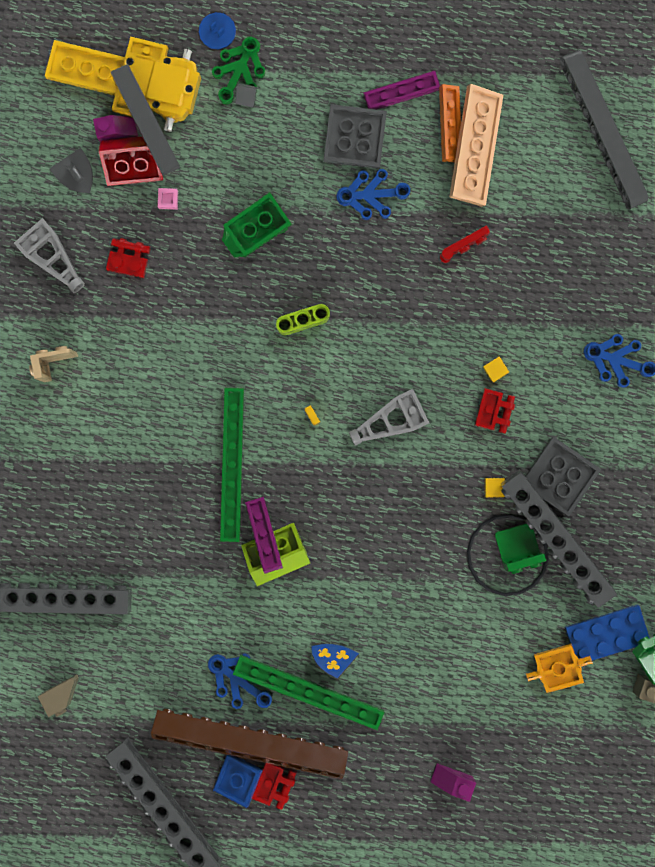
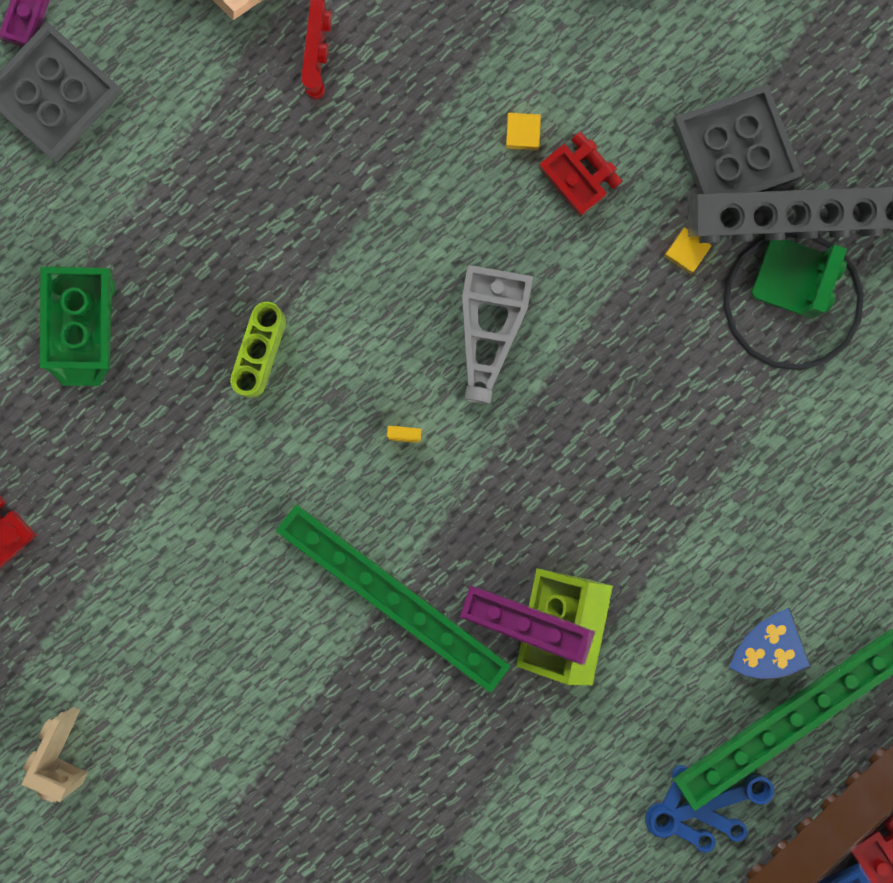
camera: 55 degrees left, 0 degrees up
(369, 194) = (150, 130): blue plant -> none

